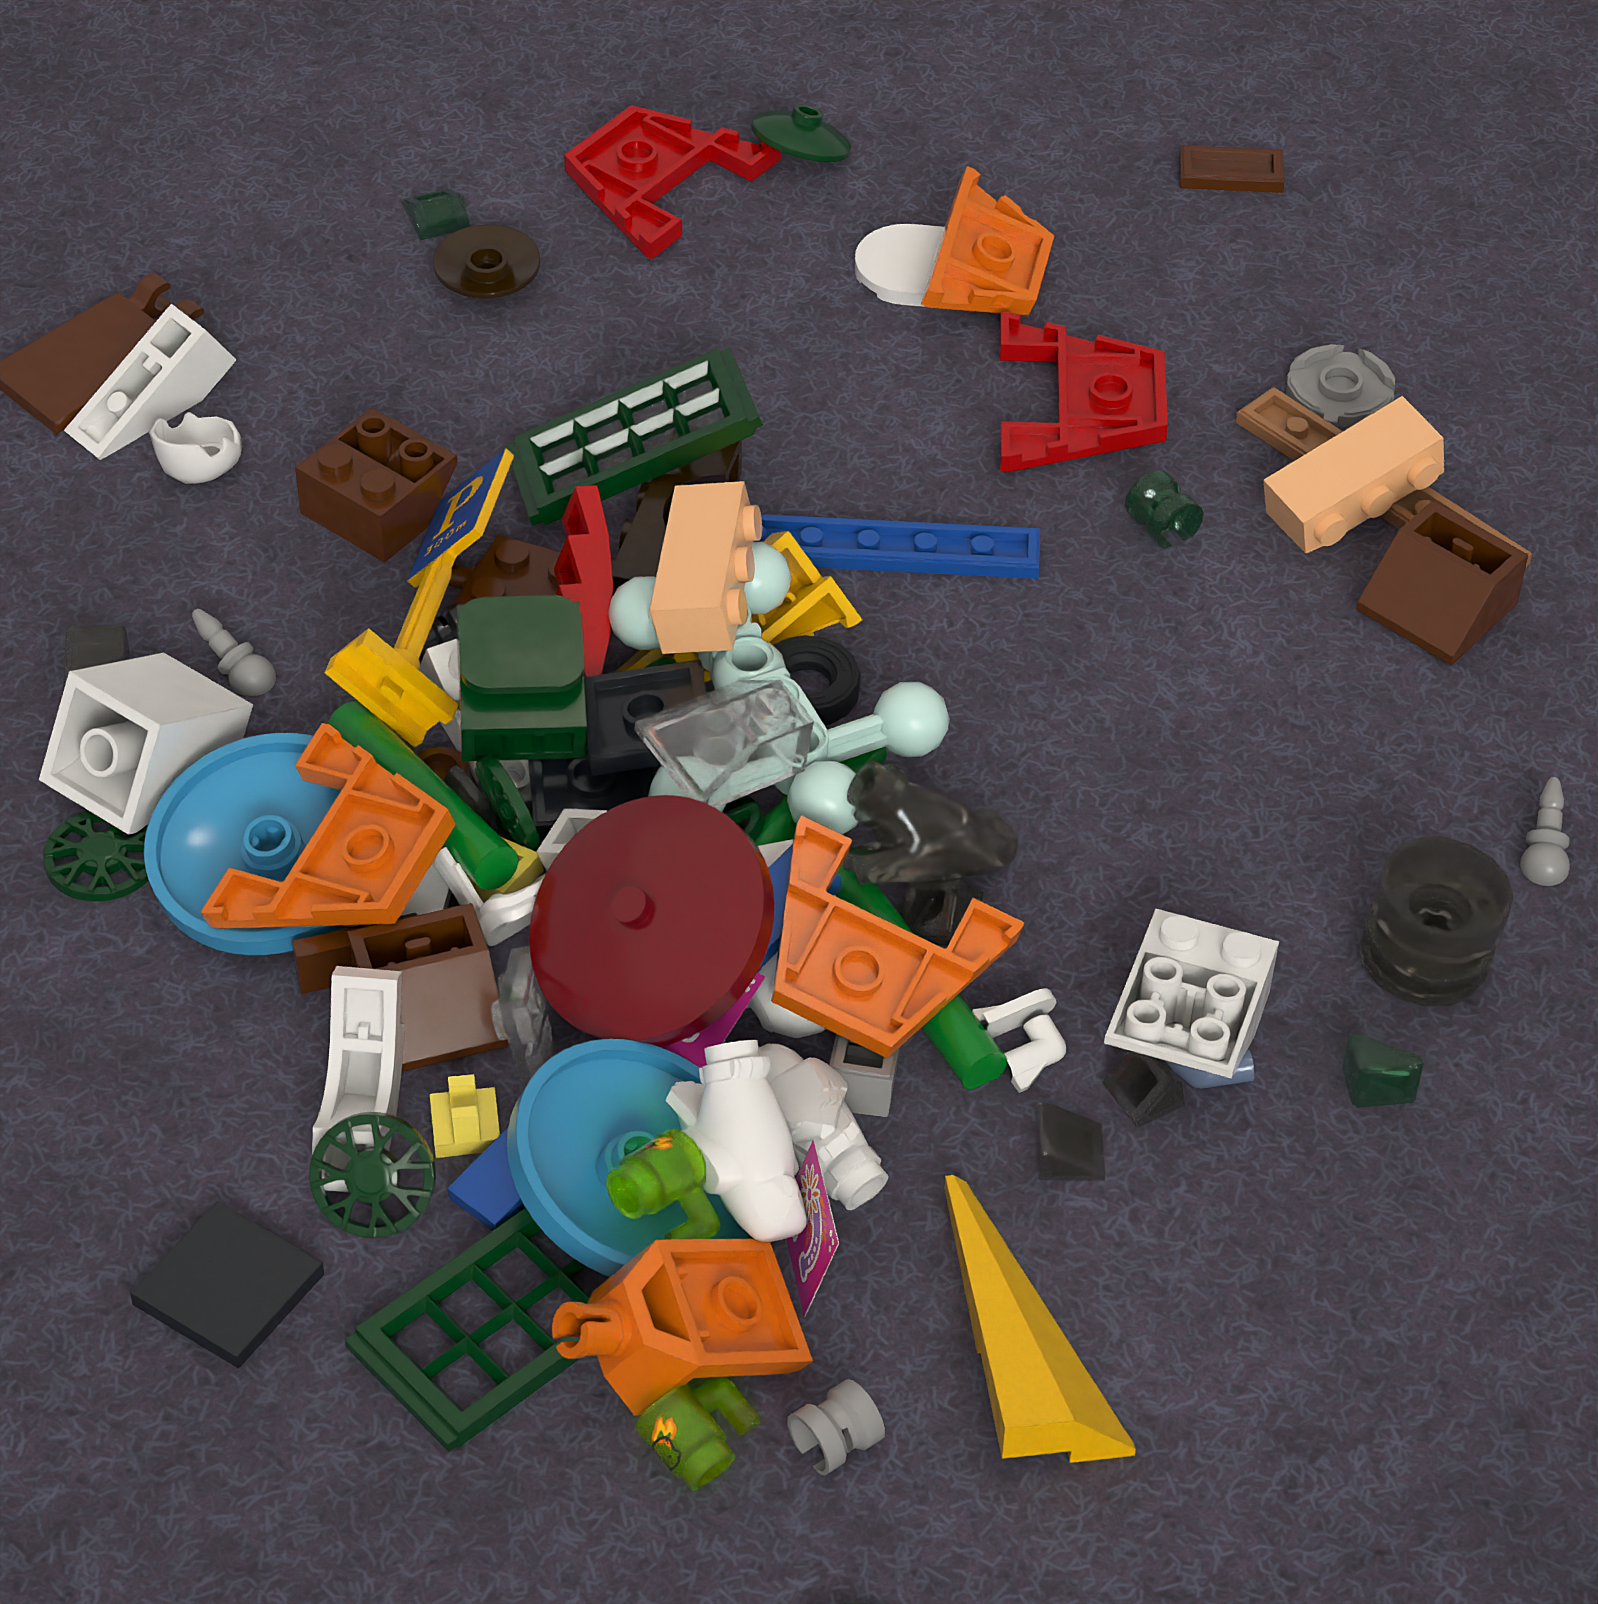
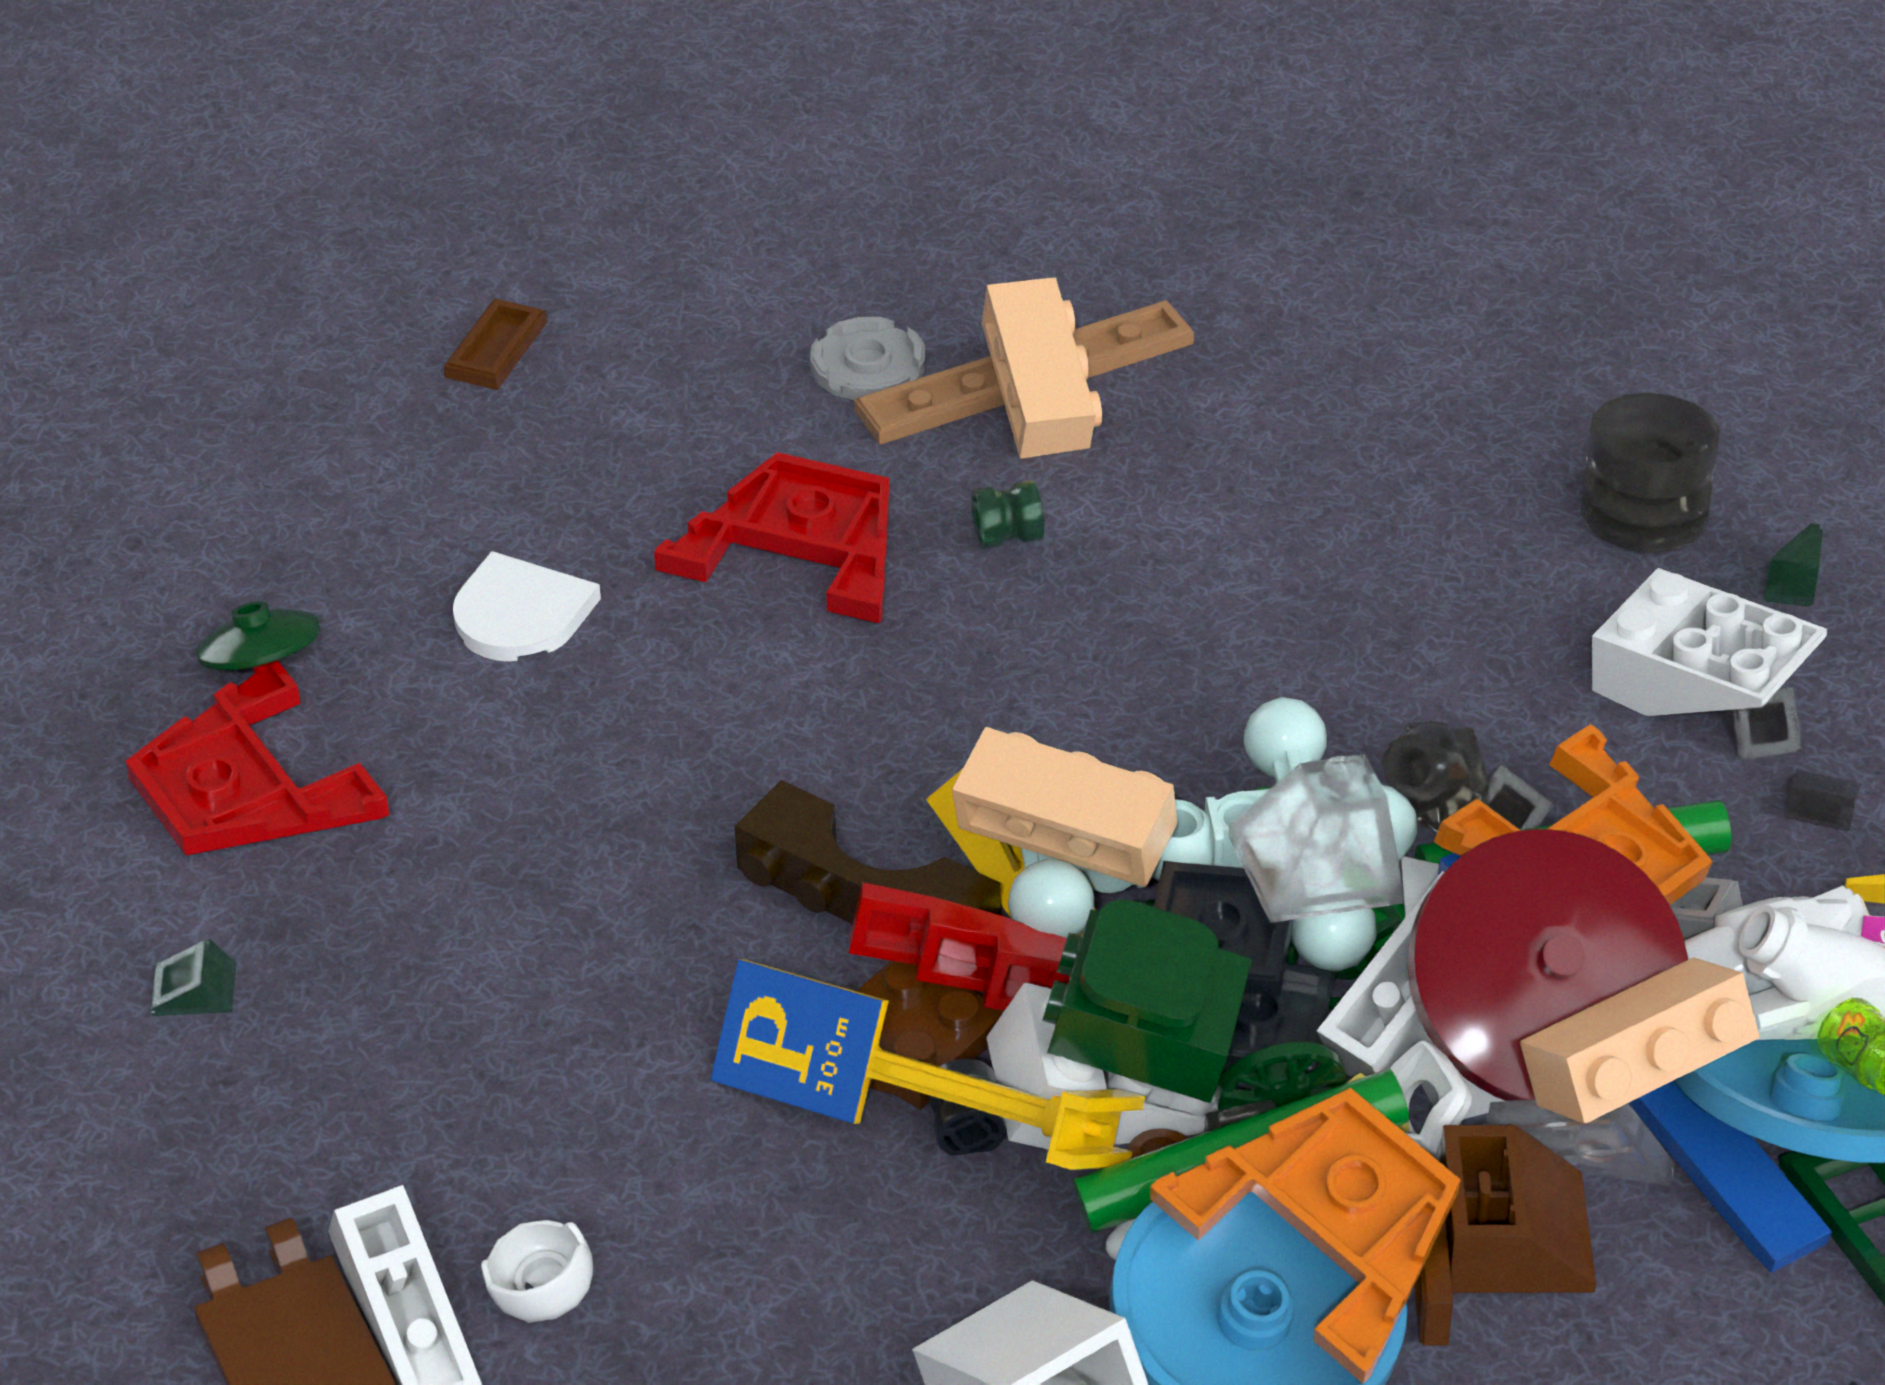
camera: 70 degrees left, 5 degrees down
(247, 672) = (930, 1301): light grey bar -> none
(362, 1057) = (1642, 1300): white arch -> none
(372, 1175) = (1765, 1304): dark green wheel -> none
(375, 483) = (694, 1111): reddish brown slope -> none
(464, 1118) = (1679, 1233): light yellow tile -> none
(486, 261) = (348, 926): dark brown dish -> none
(573, 989) = (1639, 1039): none -> light nougat brick
(634, 434) = (736, 860): dark green piece -> none
(912, 545) = (971, 699): blue tile -> none
(987, 254) = (551, 534): orange wing -> none
(1046, 1041) = (1663, 782): white piece -> none
(1444, 583) = (1203, 354): reddish brown slope -> none
(1546, 858) = (1551, 405): light grey bar -> none

